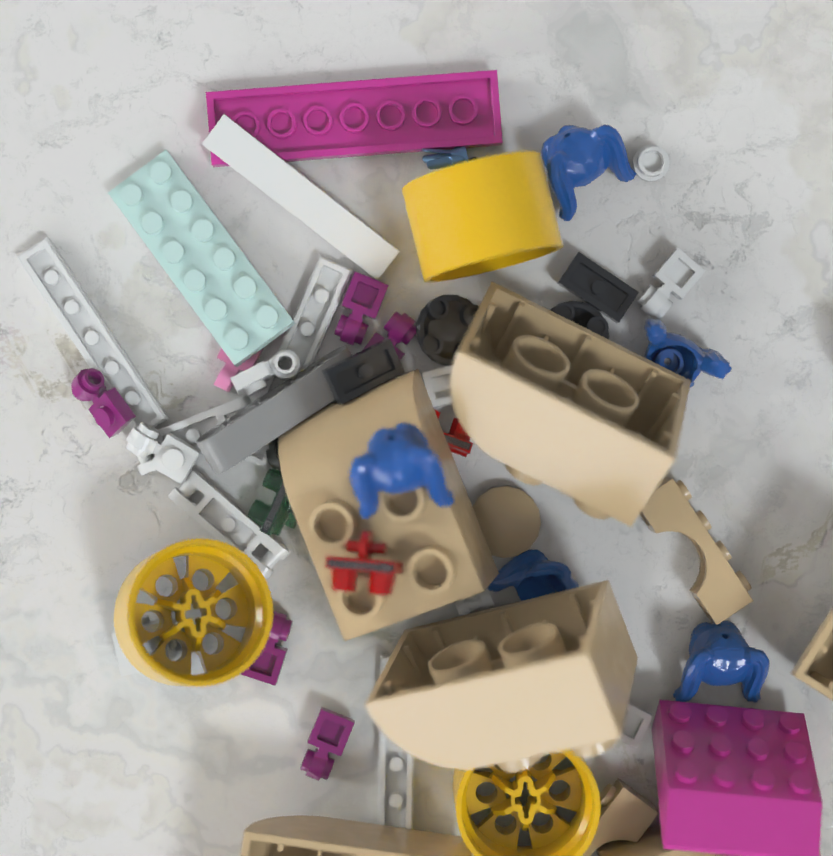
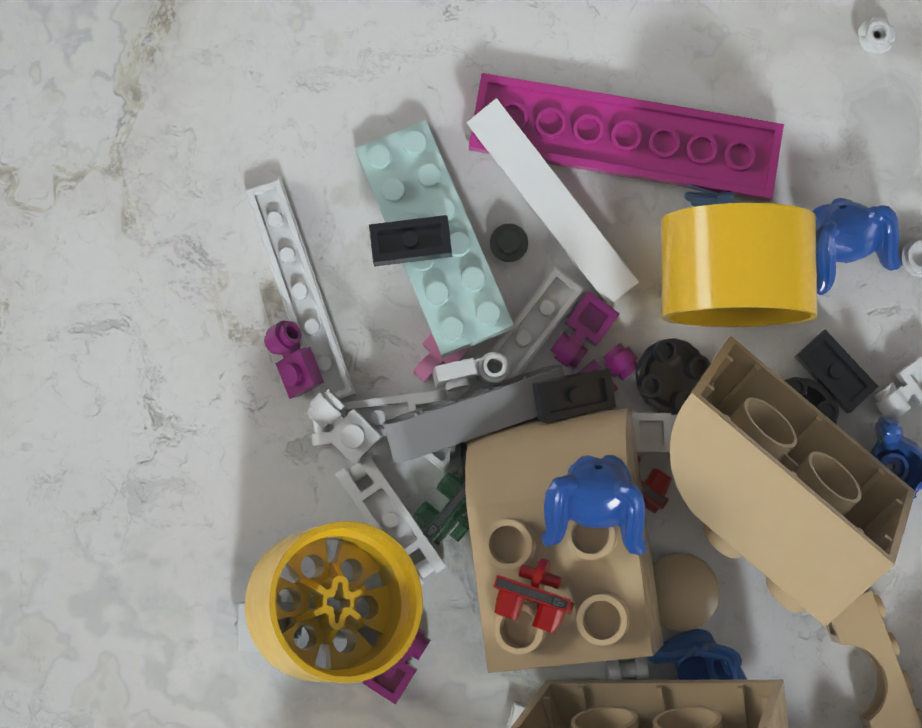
camera: 15 degrees right, 5 degrees down
(178, 268) = (410, 240): none -> black plate
(272, 244) = (509, 242): none -> pearl dark grey plate

